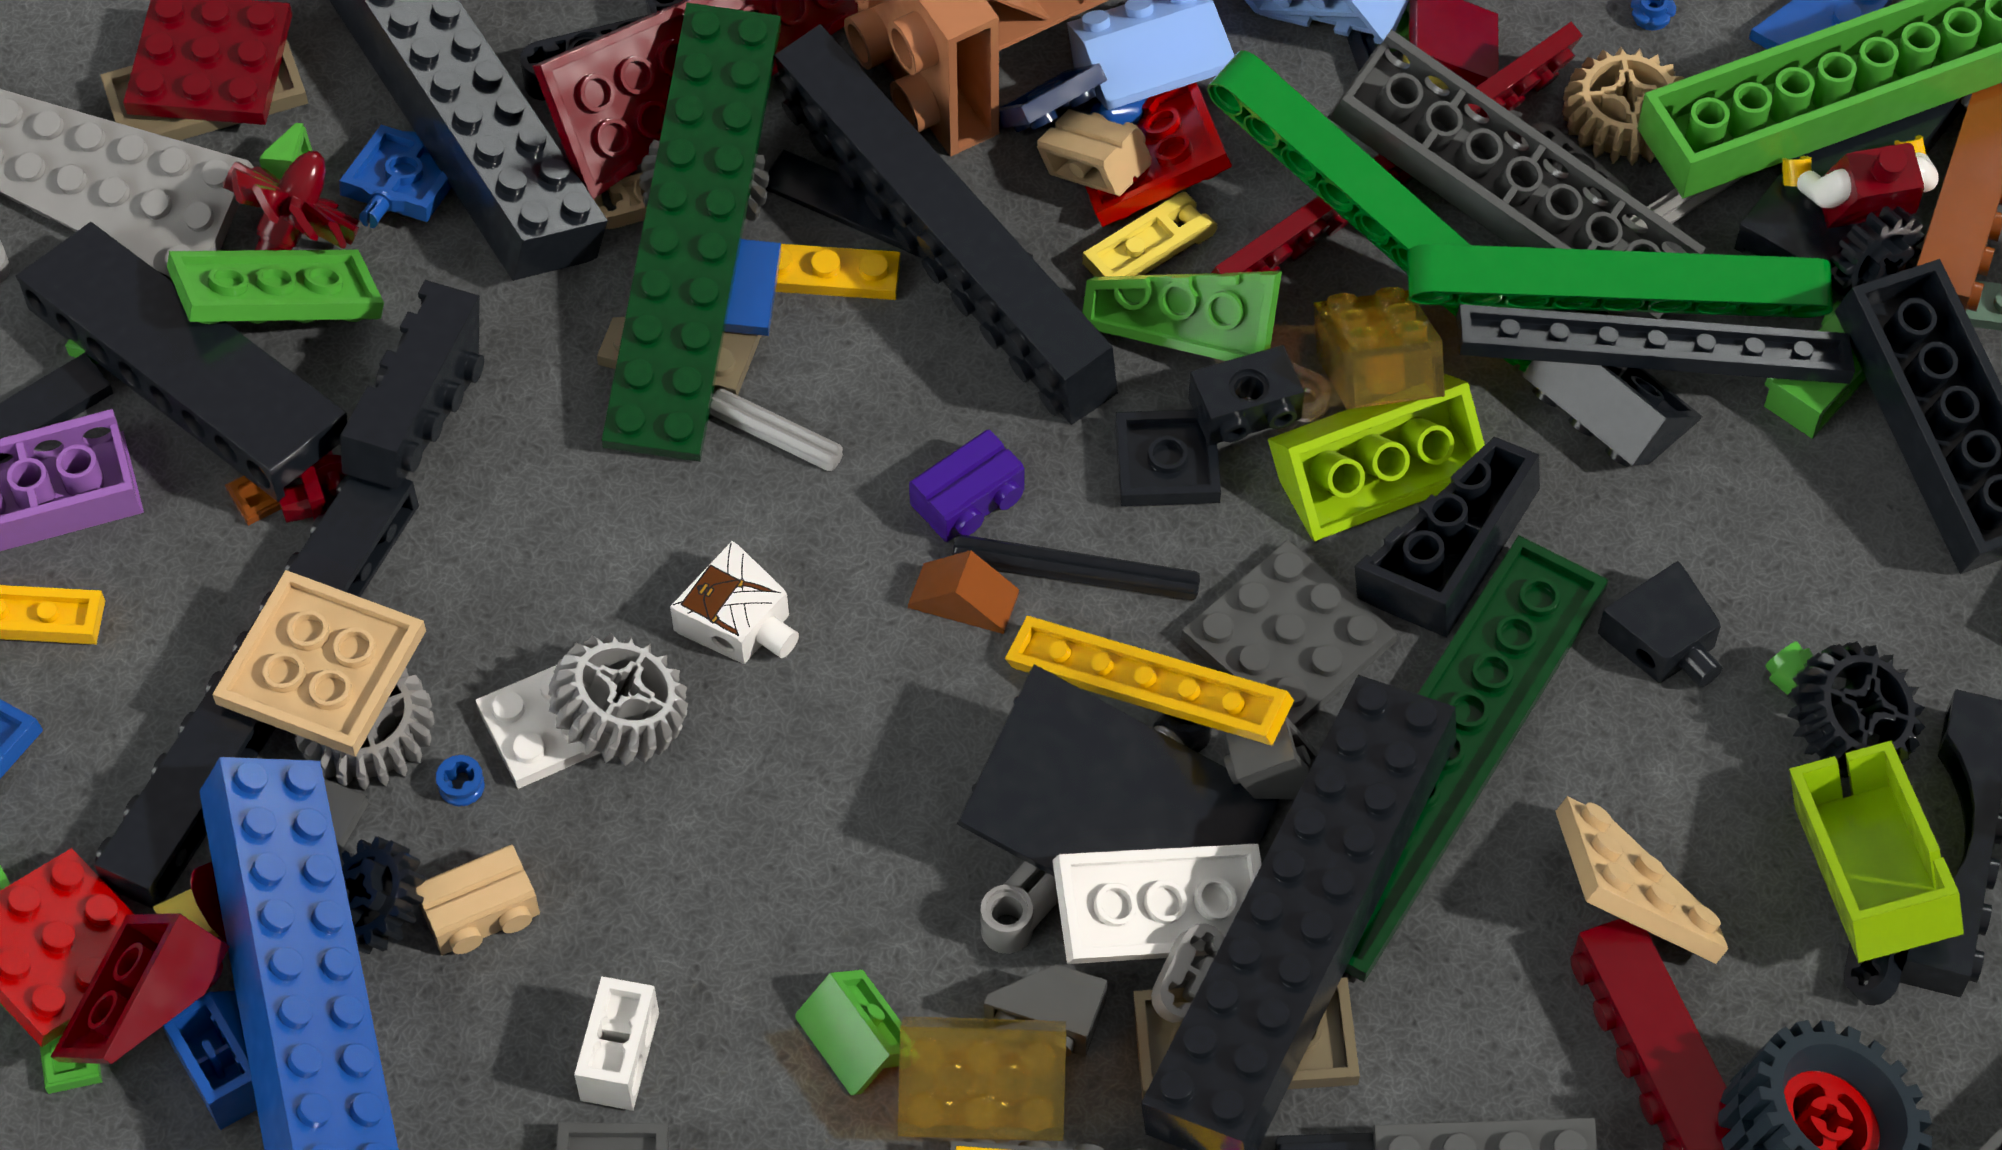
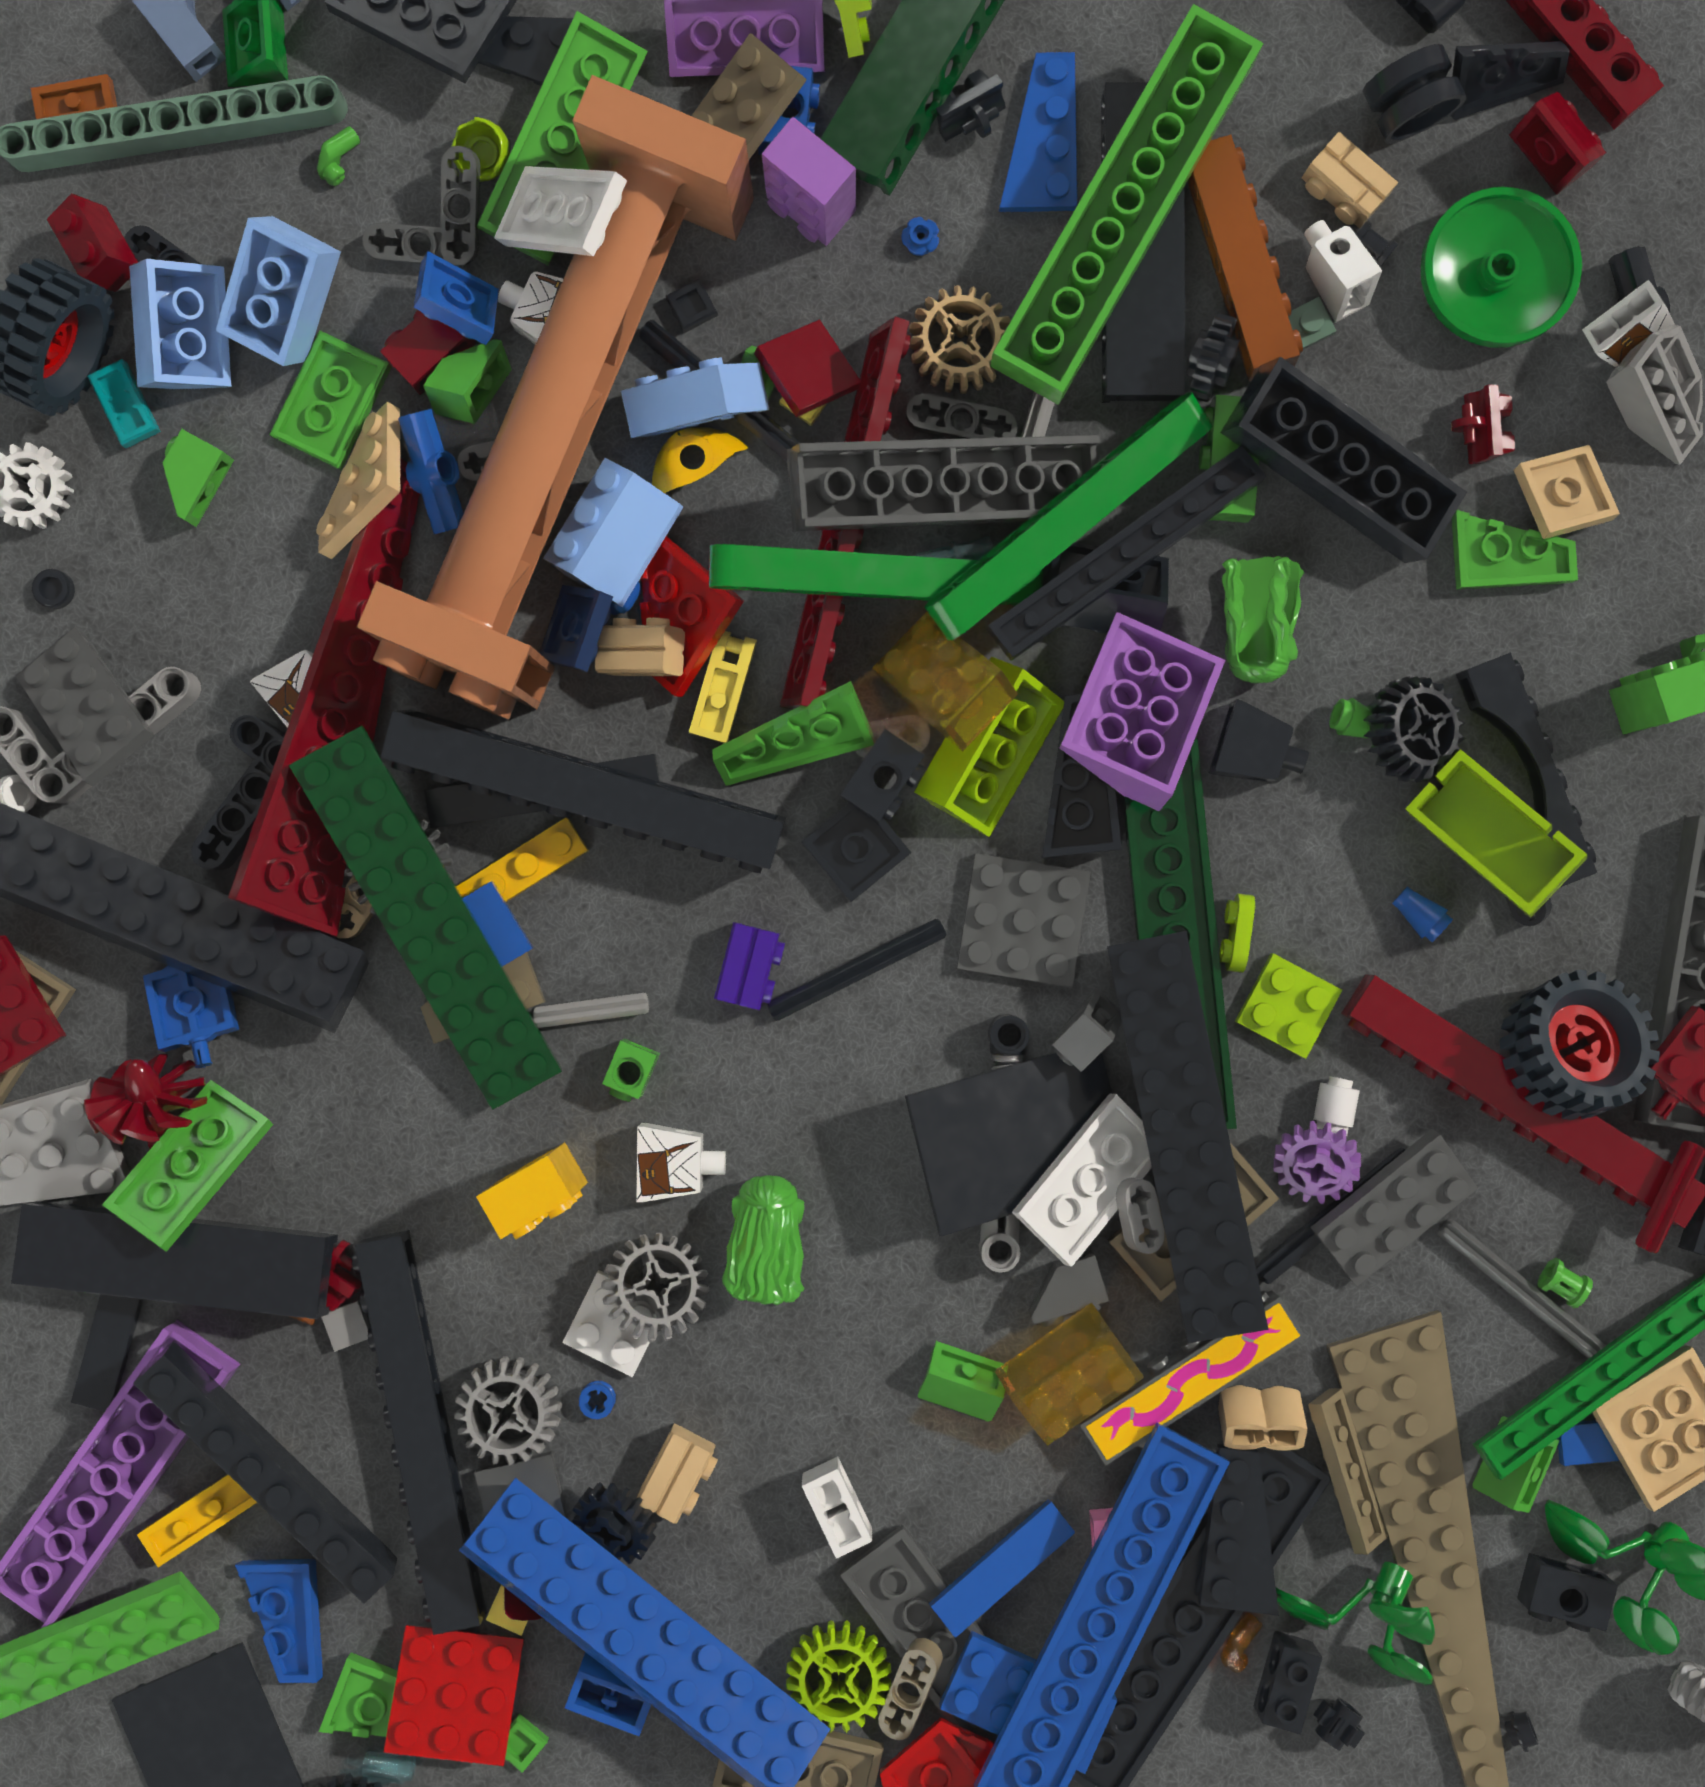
camera: 35 degrees left, 30 degrees up
(86, 597) = (267, 1471): none -> black brick
(141, 984) = (539, 1703): dark red slope -> none
(276, 542) = (346, 1325): none -> light grey tile
(286, 150) = (104, 1046): bright green slope -> none
(319, 663) = (457, 1412): tan plate -> none
(415, 387) = (349, 1176): black wedge -> none
(581, 512) = (533, 1193): none -> yellow brick
(766, 733) = (765, 1242): none -> bright green hair
(772, 482) = (642, 1057): none -> bright green brick
(965, 591) = (802, 1042): dark orange slope -> none
(1152, 680) = (976, 1038): yellow plate -> none
(1305, 43) = (717, 447): none -> yellow piece
(1409, 1073) = (1313, 1166): none -> medium lavender gear
(1496, 1029) = (1336, 1104): none -> white brick
(1518, 903) = (1288, 1005): none -> lime plate
(1525, 778) = (1236, 948): none -> lime plate
(1564, 495) = (1141, 710): none -> medium lavender slope
(1633, 884) = (1355, 954): tan plate -> none
(1739, 908) = (1422, 914): none -> blue cone
(1760, 506) = (1261, 616): none -> bright green hair
(1866, 181) = (1184, 312): dark red torso -> none

